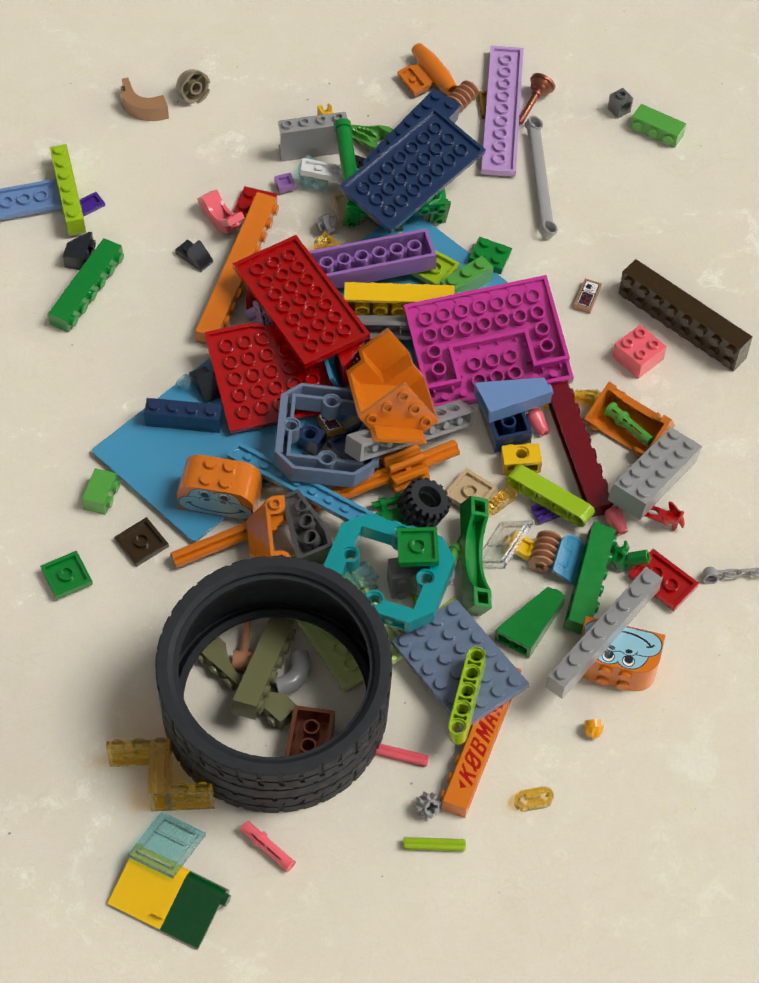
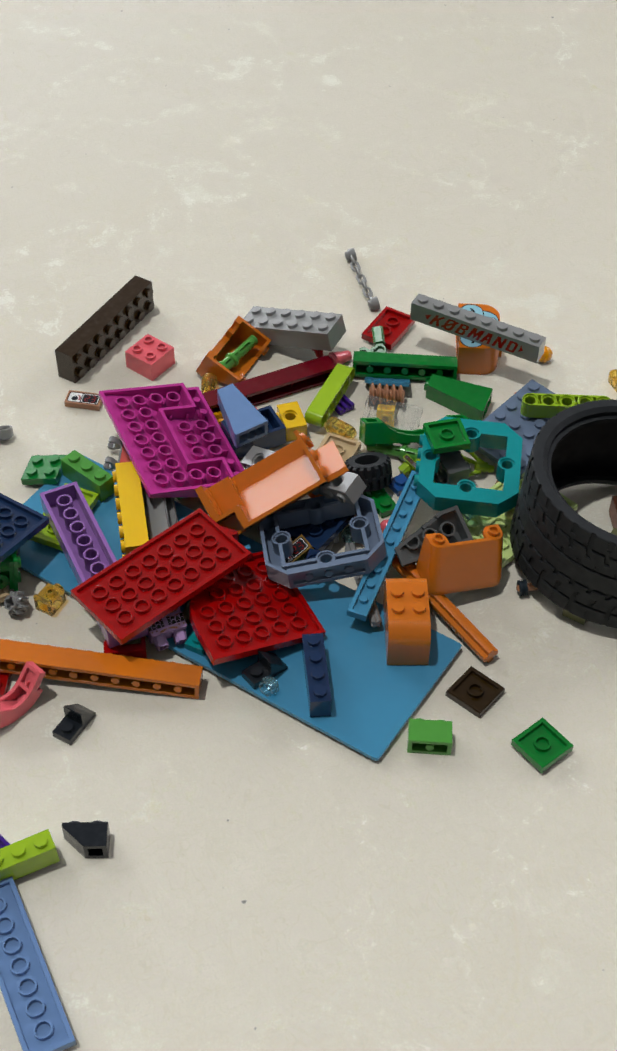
camera: 100 degrees left, 10 degrees down
(86, 285) = (141, 818): green brick -> none

